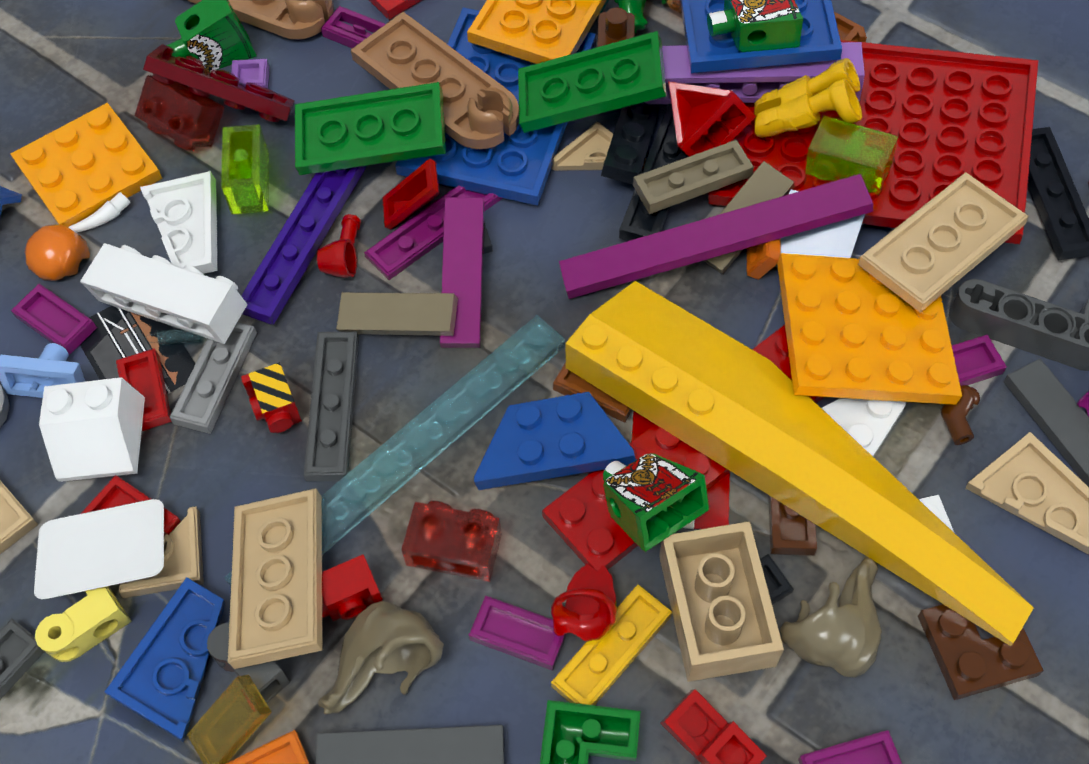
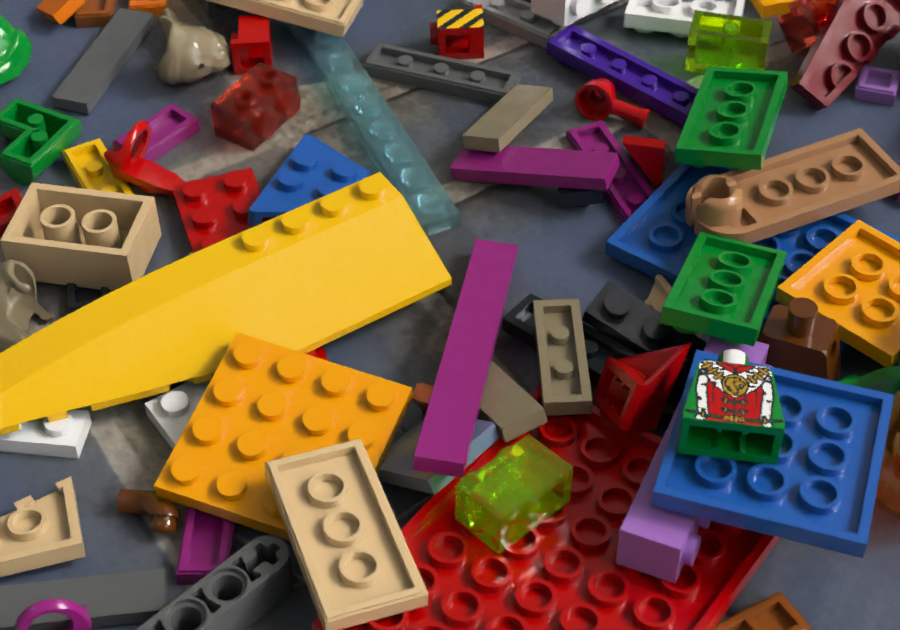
camera: 110 degrees right, 15 degrees down
(653, 497) = (192, 196): torso -> none
(800, 101) = (606, 462): yellow piece -> none

